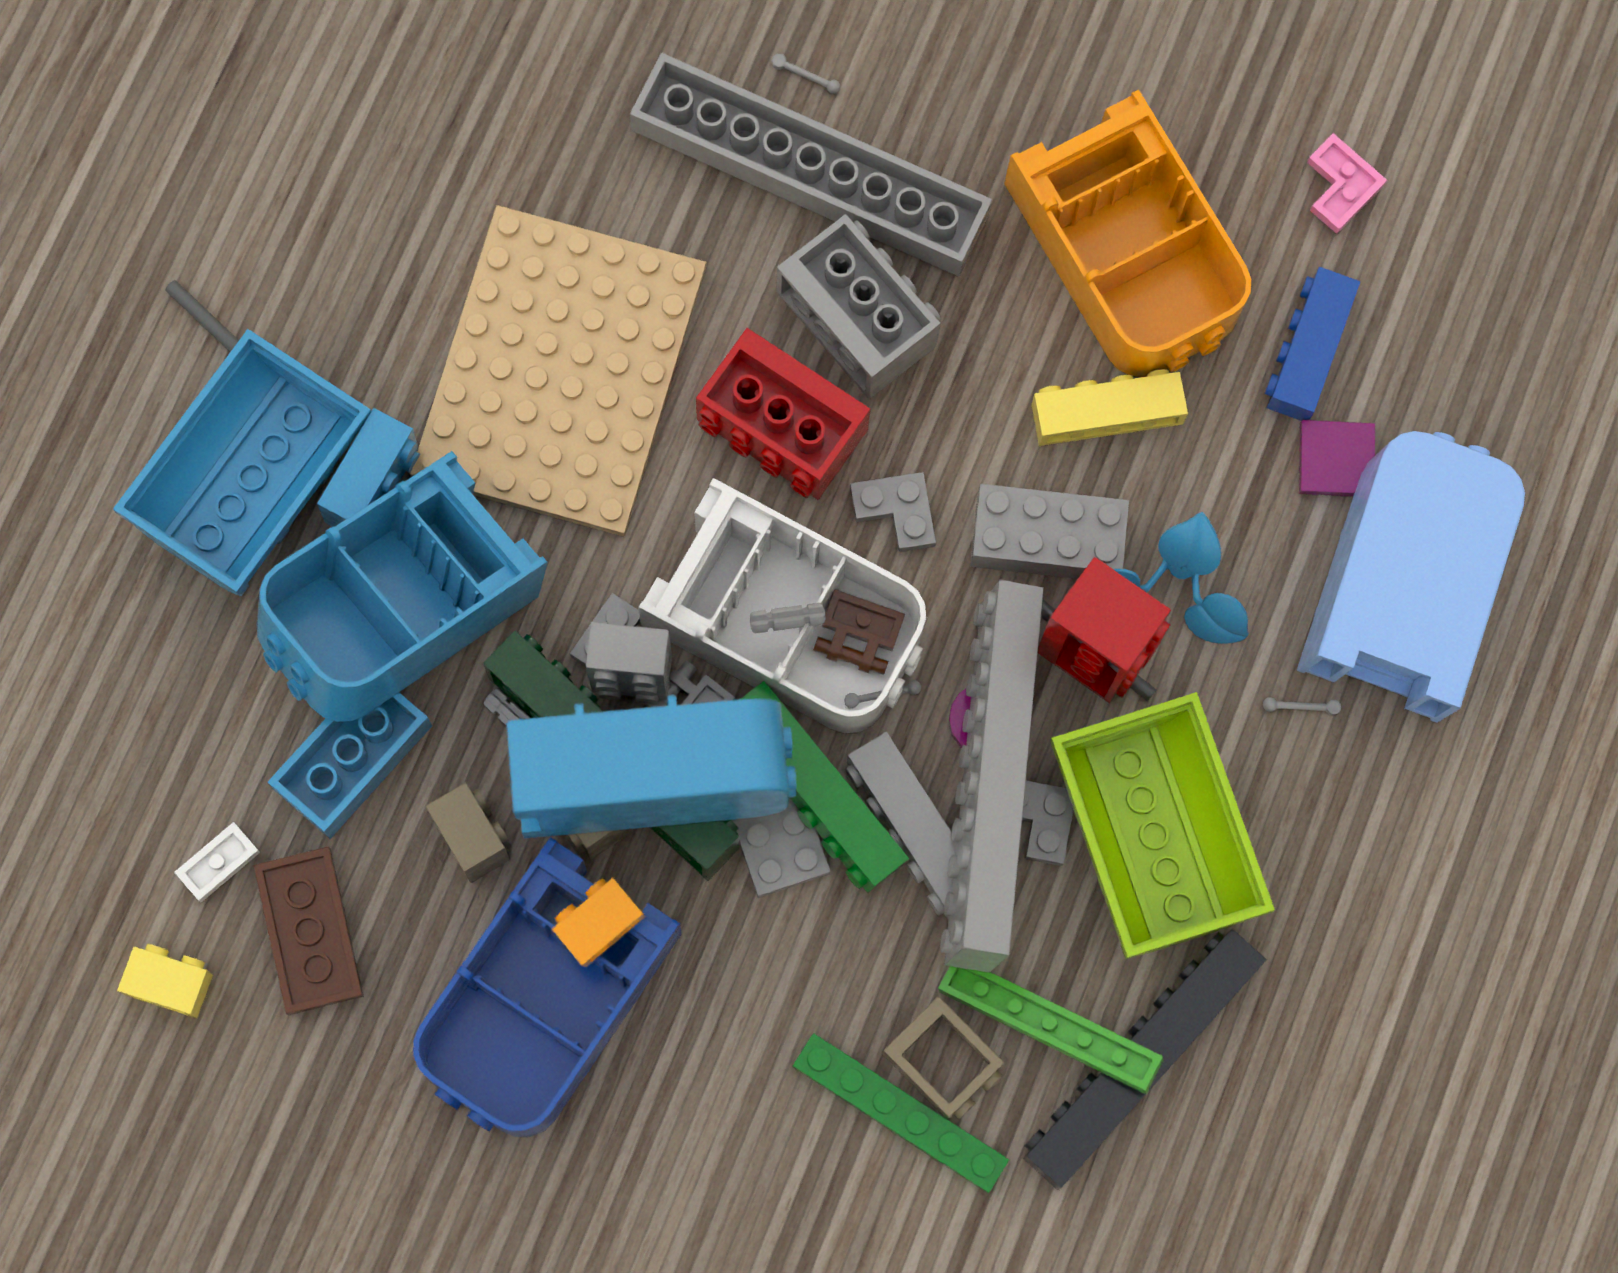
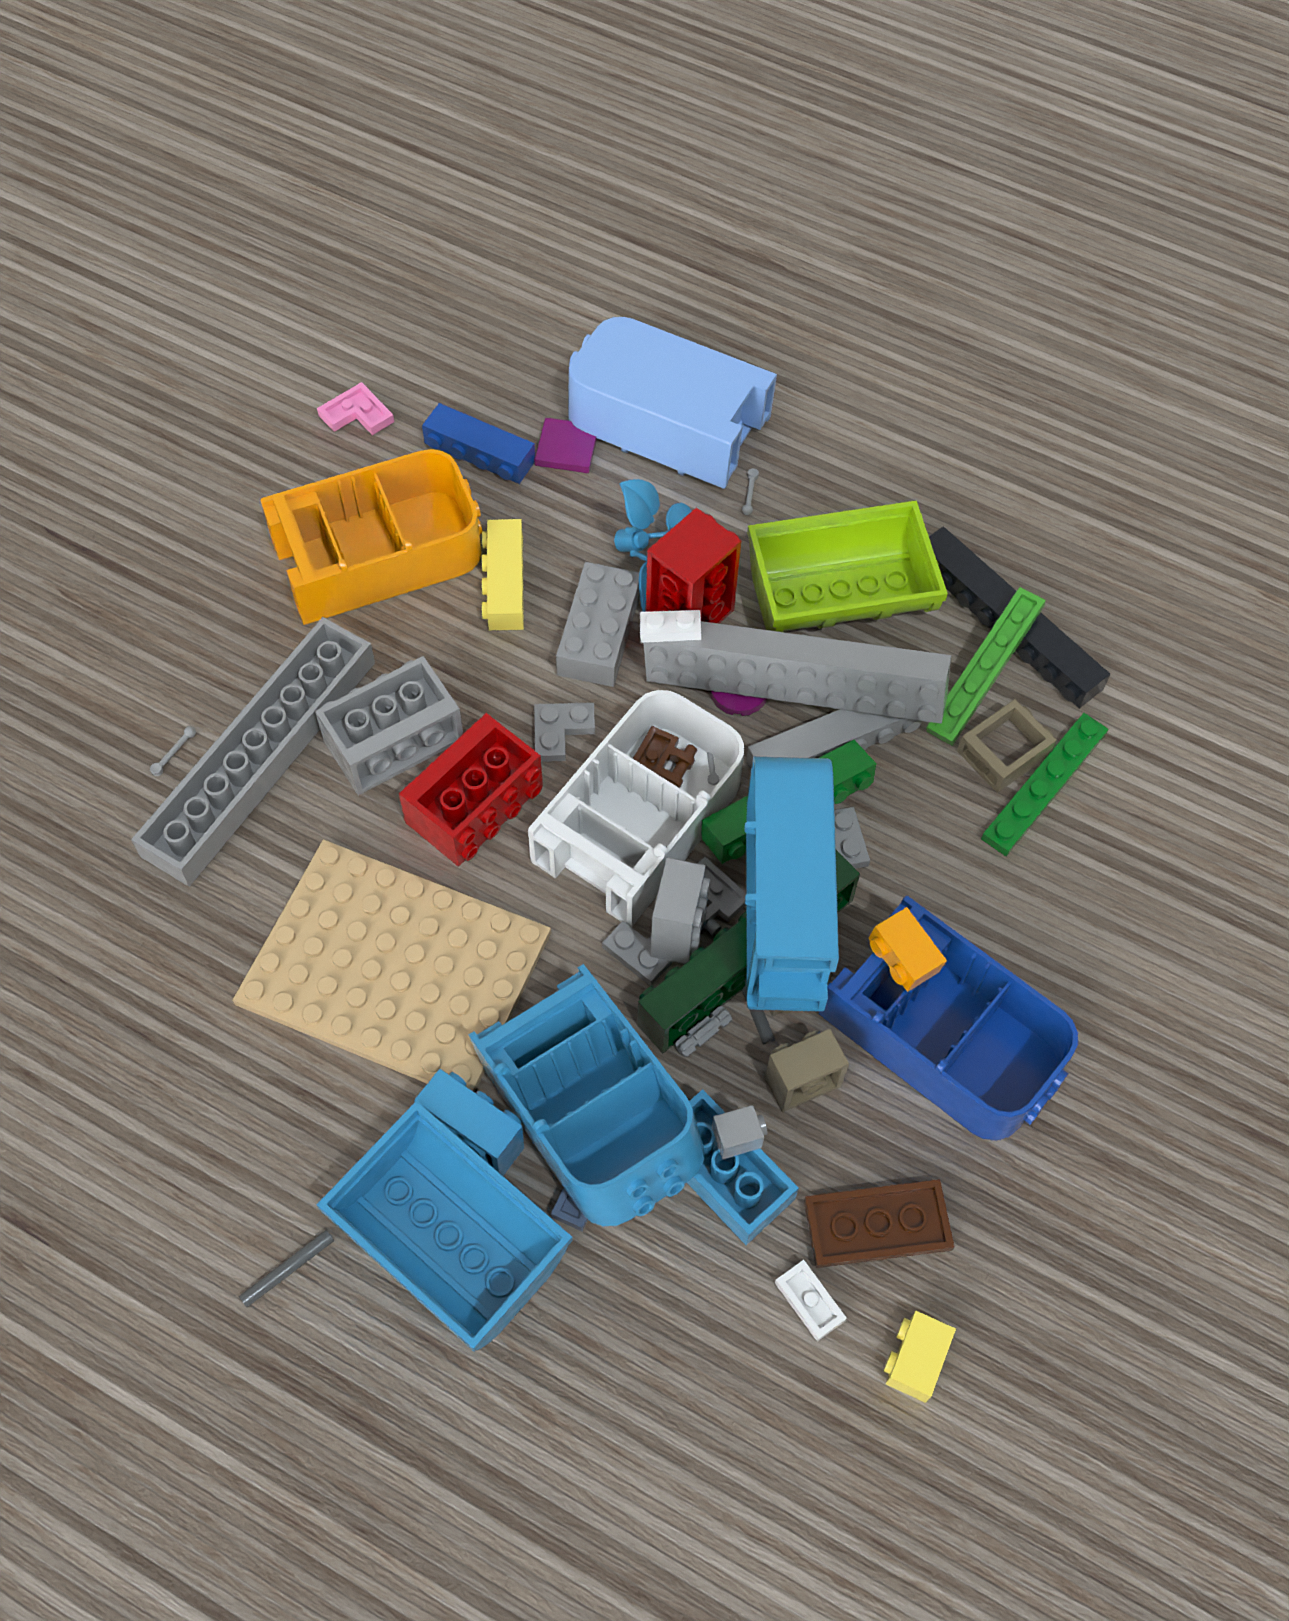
camera: 80 degrees left, 15 degrees down
(373, 756) = (739, 1131): none -> light grey brick
(787, 618) = (656, 787): light grey axle -> none
(1020, 609) = (670, 626): none -> white plate

